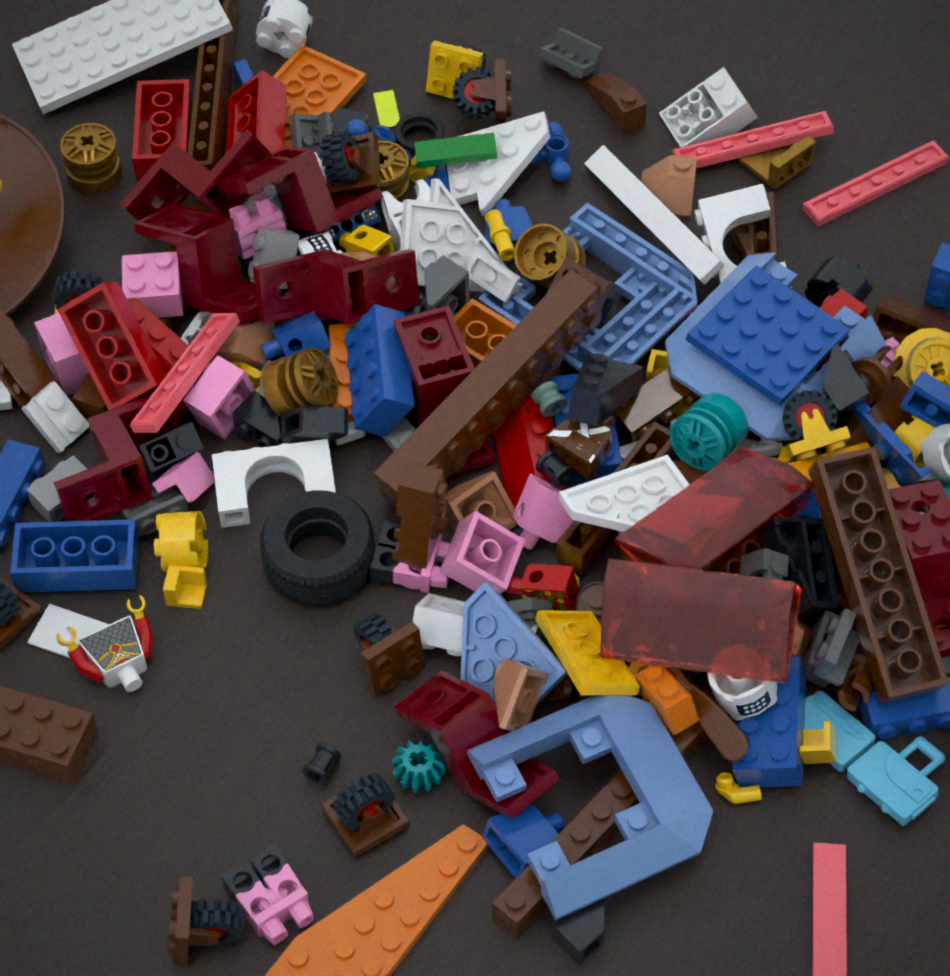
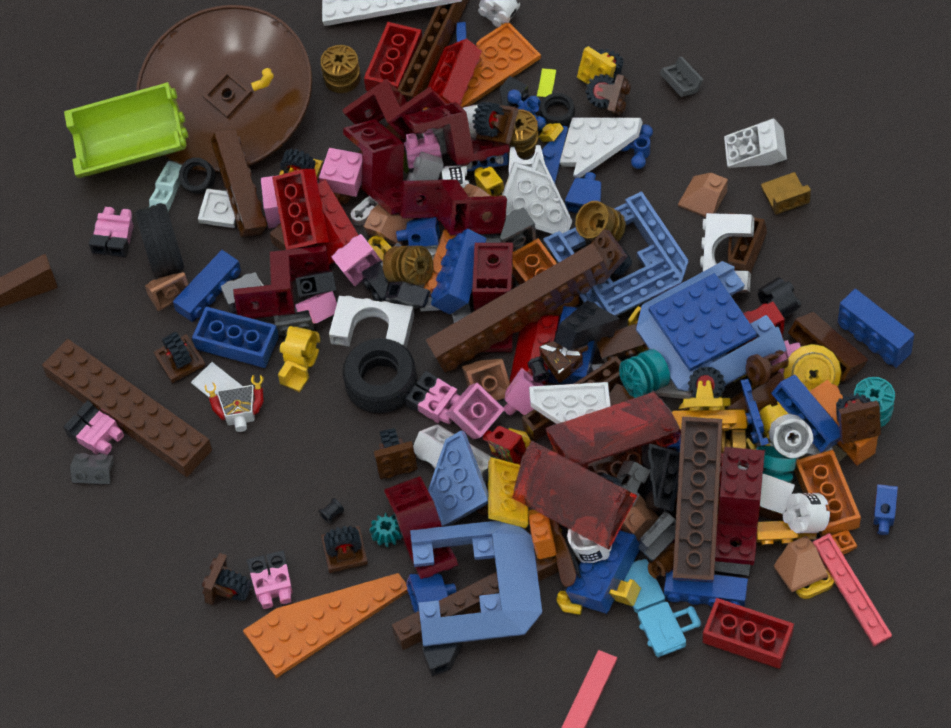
camera: 25 degrees right, 5 degrees up
(55, 417) = (255, 242): white plate -> none
(184, 373) = (338, 239): coral tile -> none
(309, 130) = (484, 90): dark grey bracket -> none
(421, 512) = (443, 375): reddish brown wedge -> none
(455, 150) = (572, 129): green tile -> none
(493, 276) = (556, 227): white plate -> none
(500, 235) = (574, 198): yellow pin -> none
(517, 692) = (453, 505): nougat slope -> none
(528, 607) = (488, 452): dark grey plate -> none
(549, 399) = (553, 321): sand green wheel -> none
(619, 101) = (699, 120): reddish brown slope -> none
(654, 215) = (681, 211): white tile -> none
(758, 139) = (776, 176): coral tile -> none
(843, 383) = (735, 368): black slope -> none
(875, 183) = (845, 229): coral tile -> none

